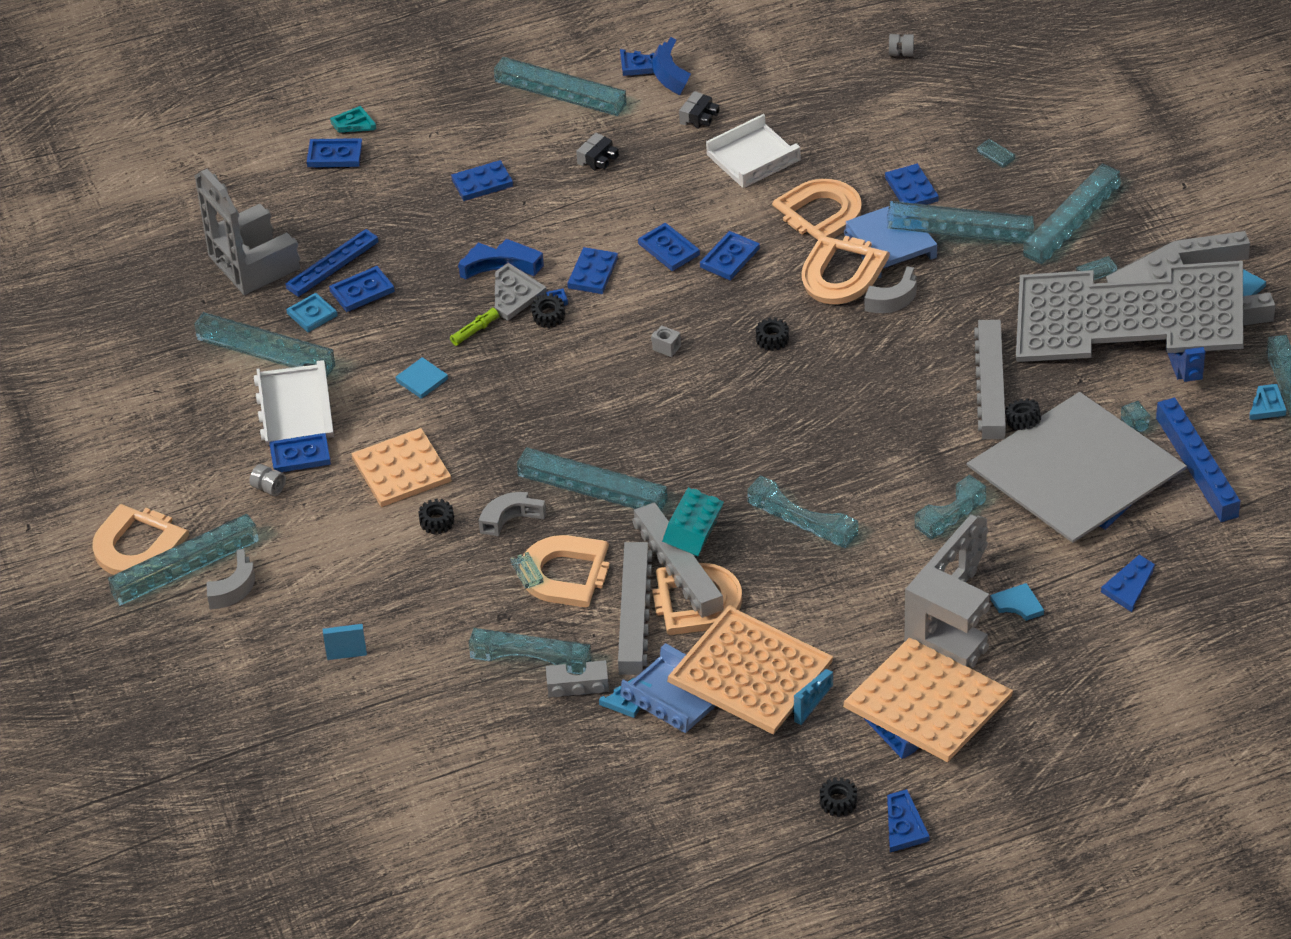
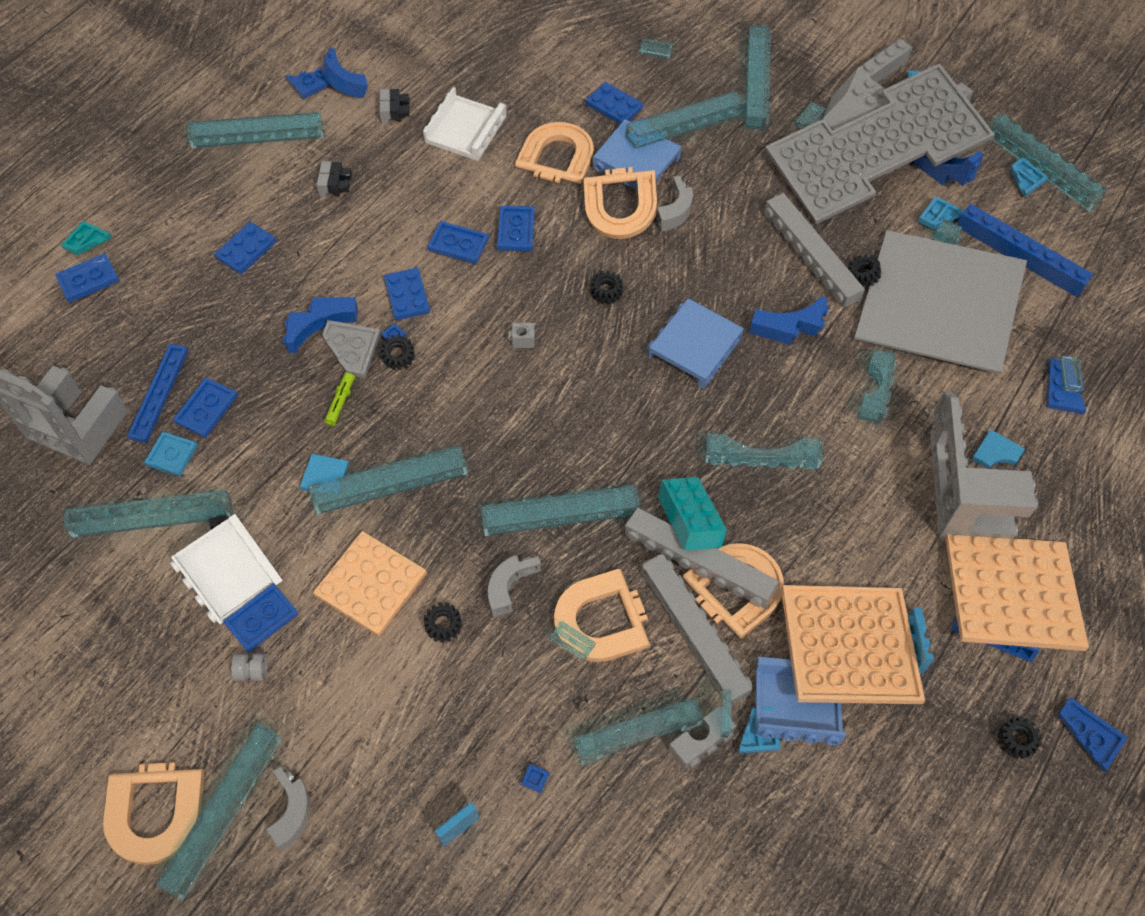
camera: 35 degrees left, 15 degrees up
(428, 648) = (535, 778): none -> blue tile
(469, 400) = (388, 480): none -> clear light blue brick
(602, 661) = (725, 713): none -> clear light blue tile
(816, 407) = (696, 341): none -> medium blue panel
(909, 428) = (785, 326): none -> blue arch
(1141, 572) = (1071, 374): none -> clear light blue tile
(1147, 395) = (937, 211): none -> dark azure wing

